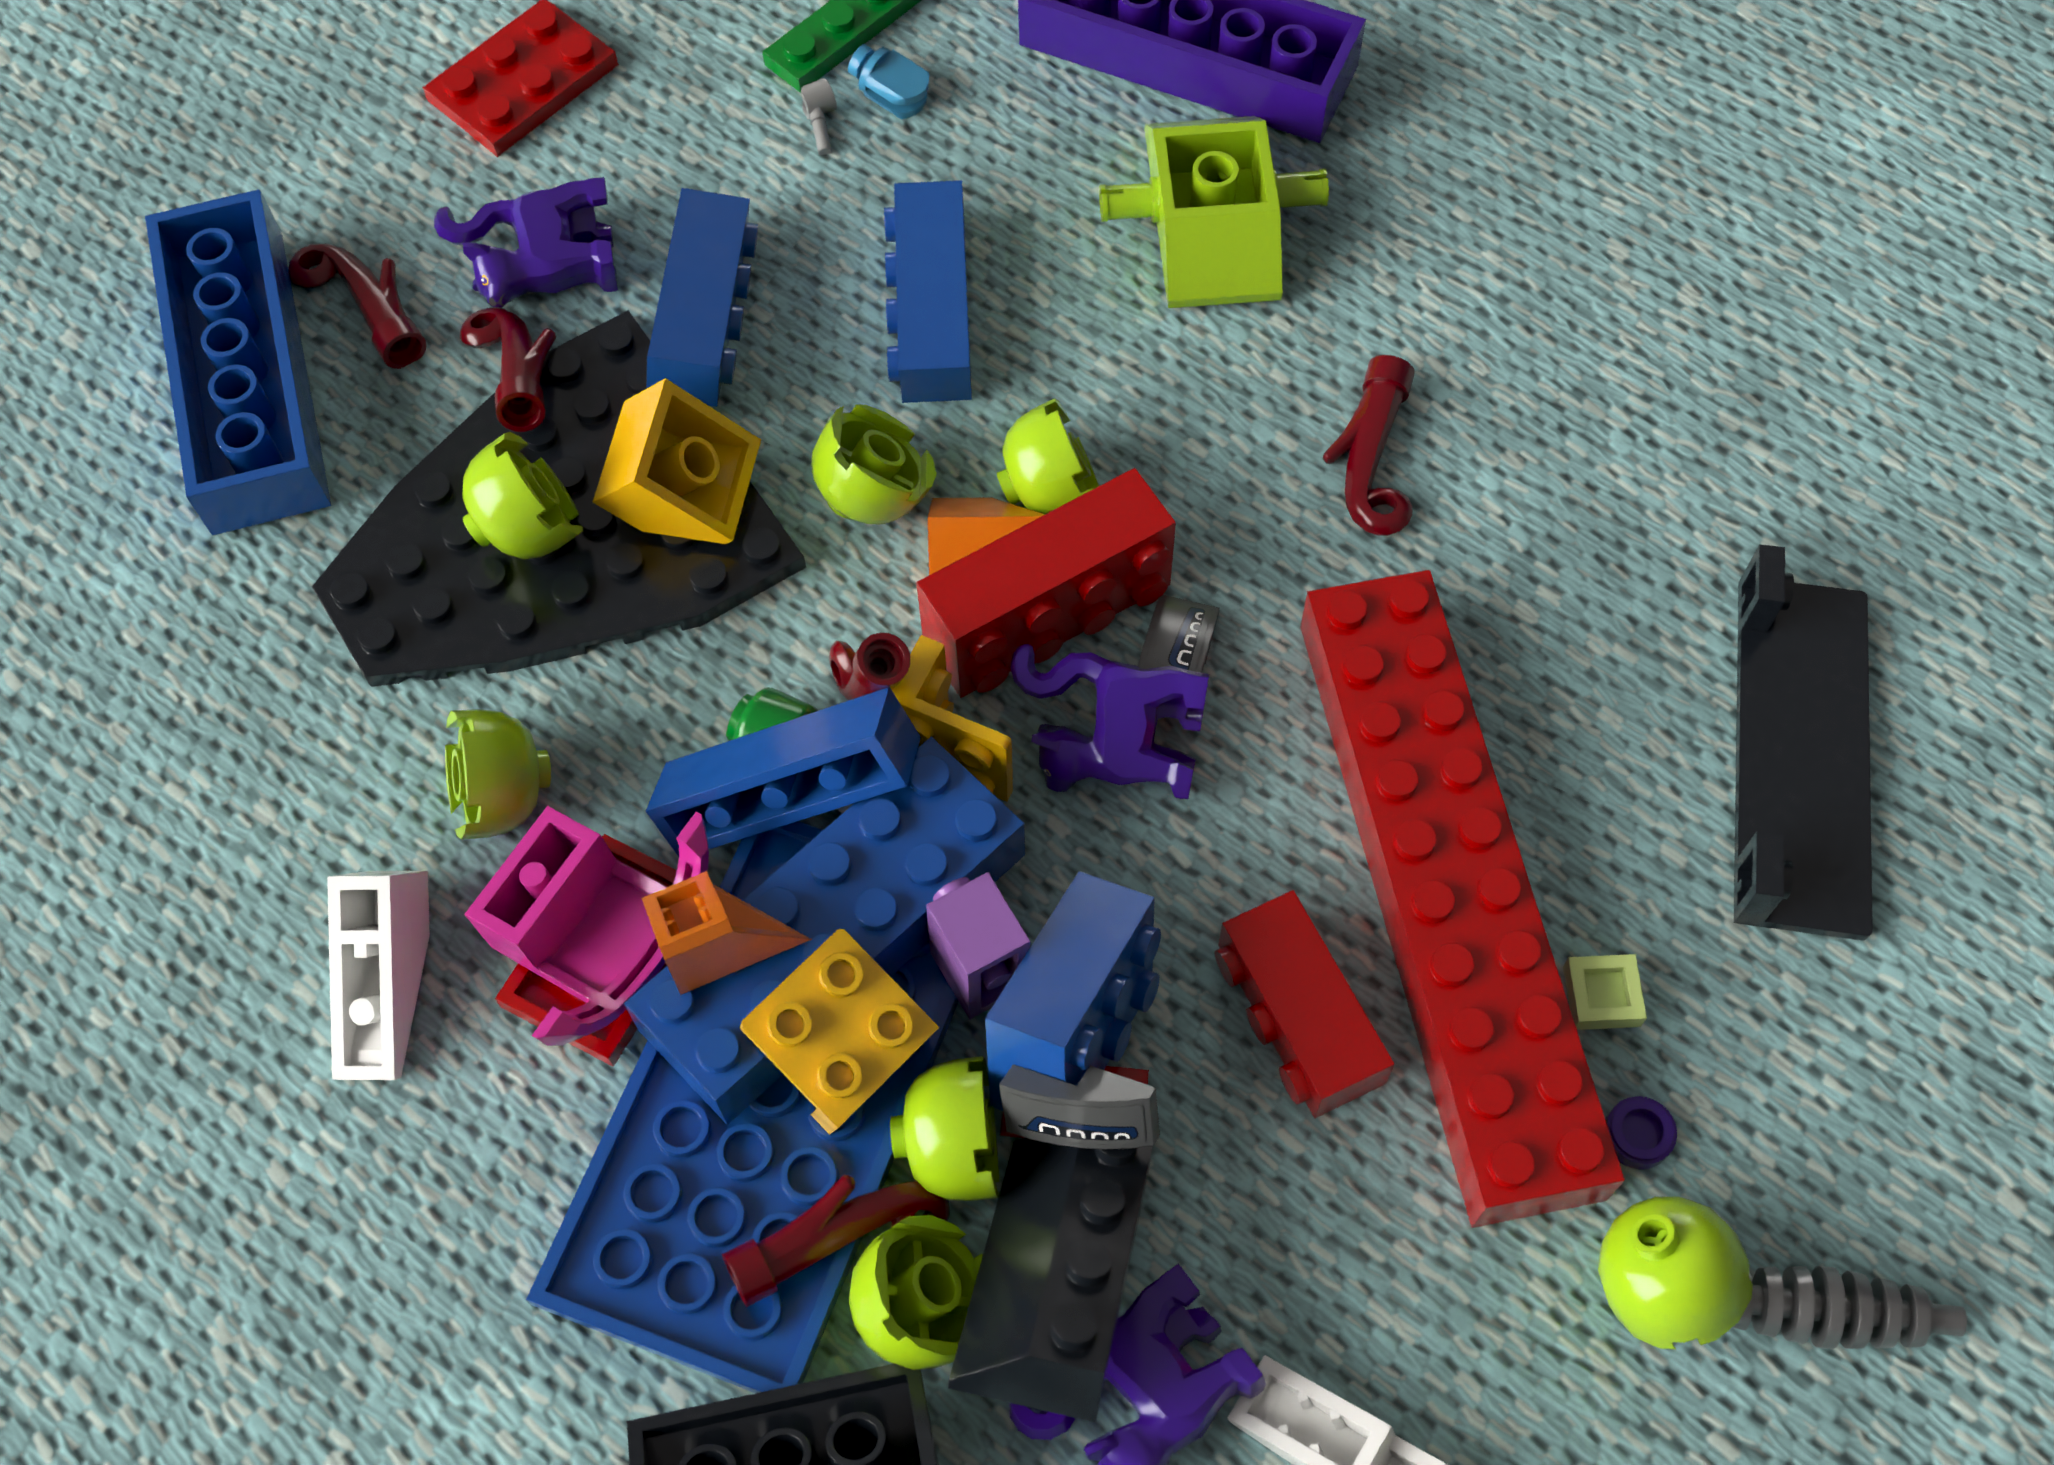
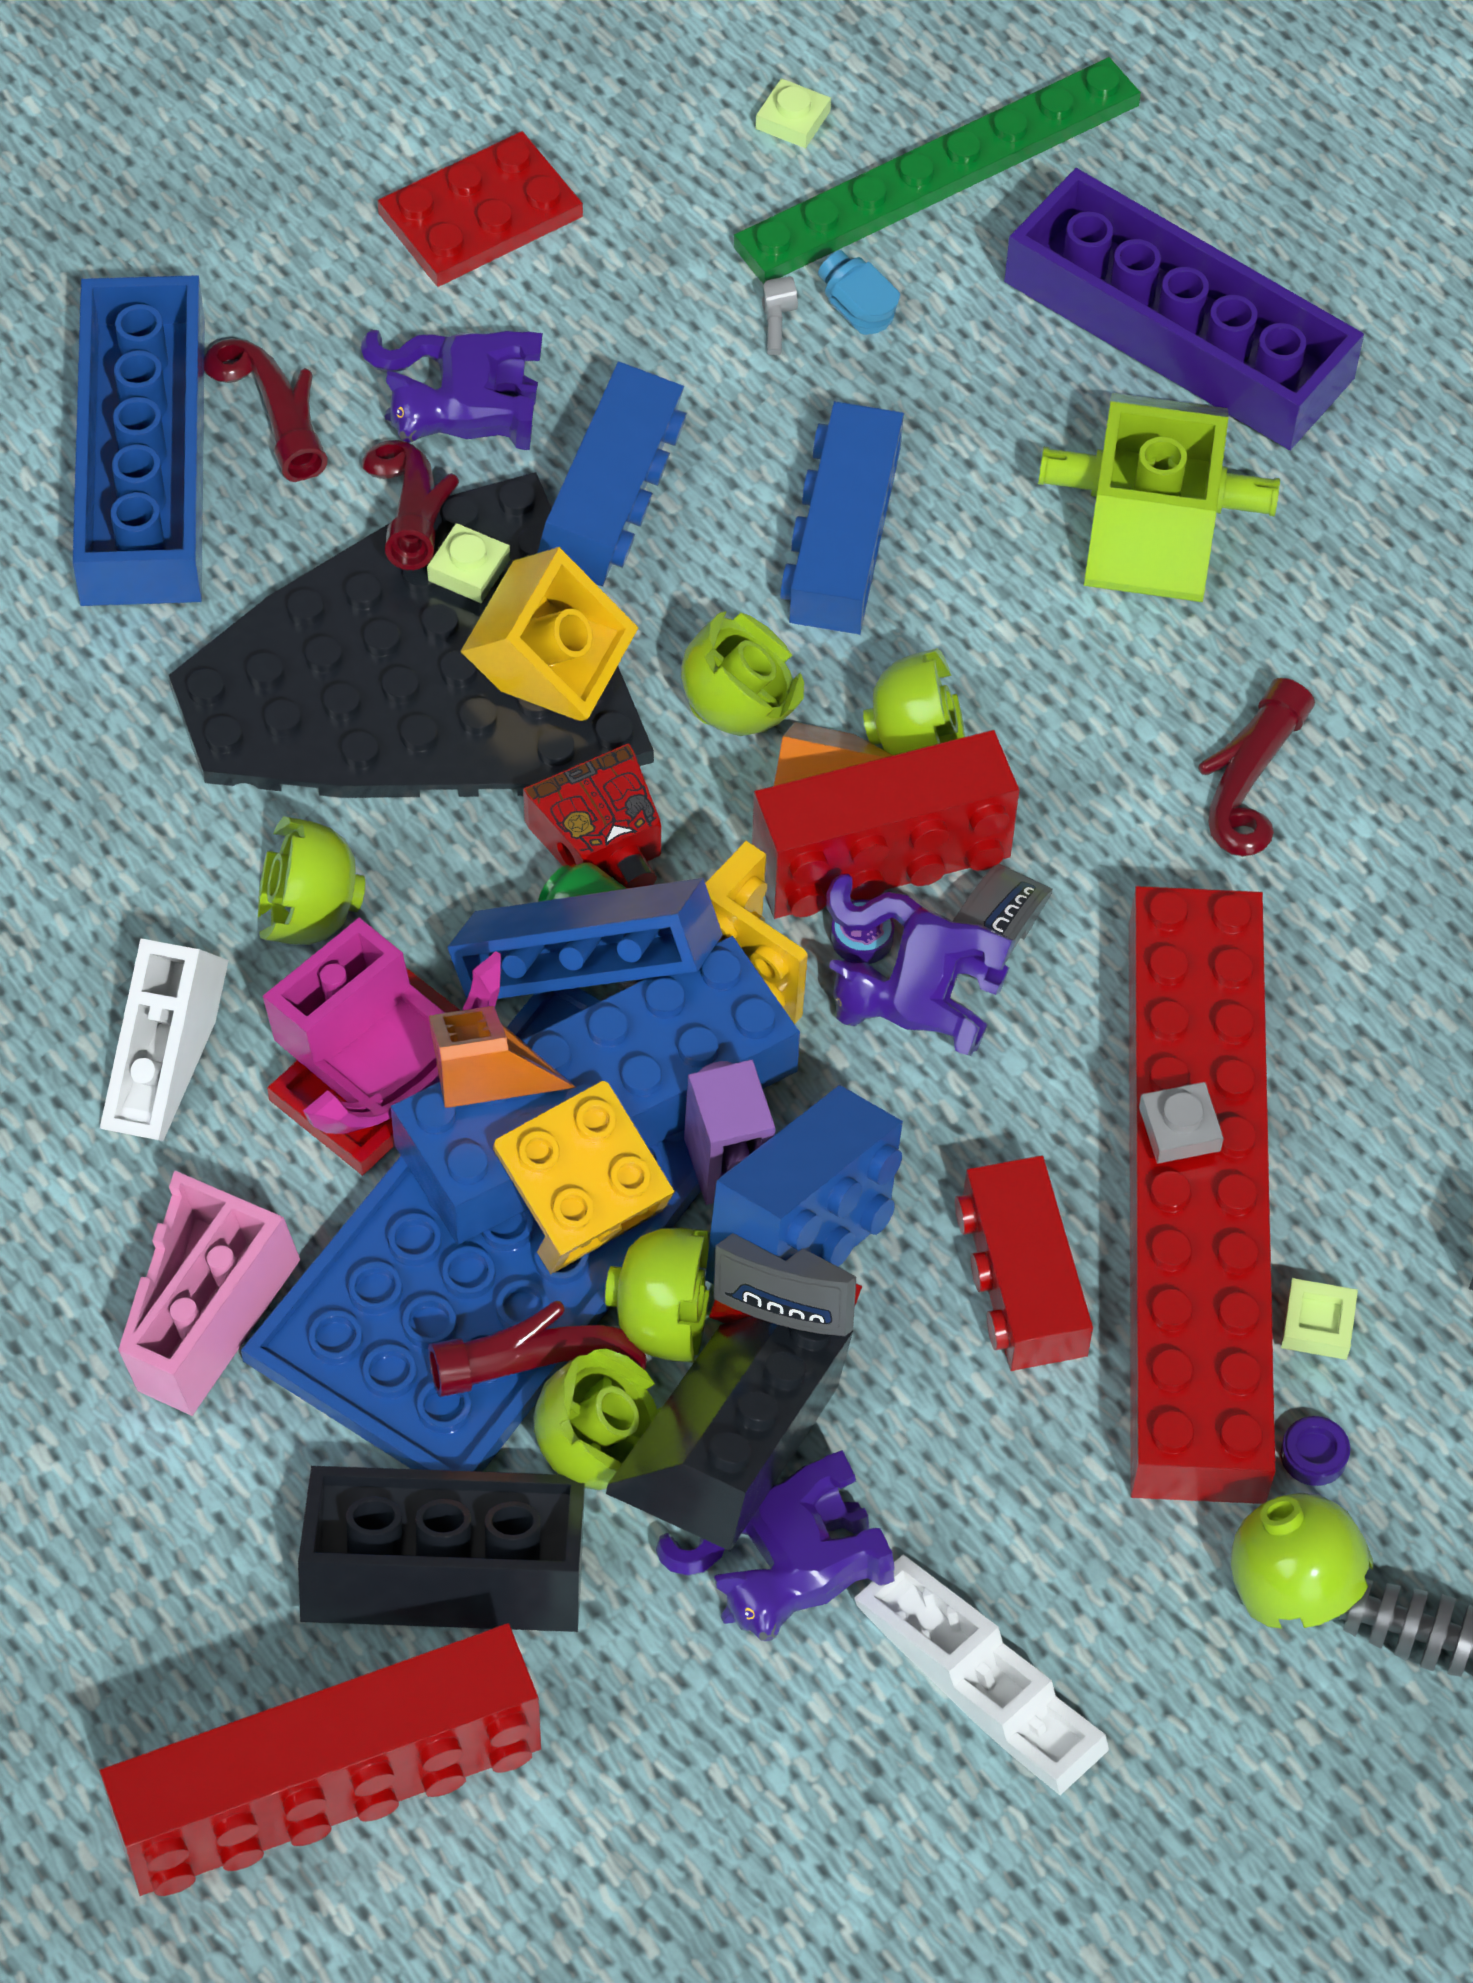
camera: 10 degrees right, 5 degrees down
(470, 1247) = (204, 1291): none -> bright pink wedge
(516, 502) = (387, 635): lime cylinder -> none
(582, 412) = (468, 563): none -> yellowish green plate
(767, 638) = (598, 817): none -> red torso
(876, 665) = (696, 855): dark red plant -> none
(1053, 709) = (863, 945): none -> dark purple tile
(1426, 828) = (1181, 1122): none -> light grey plate

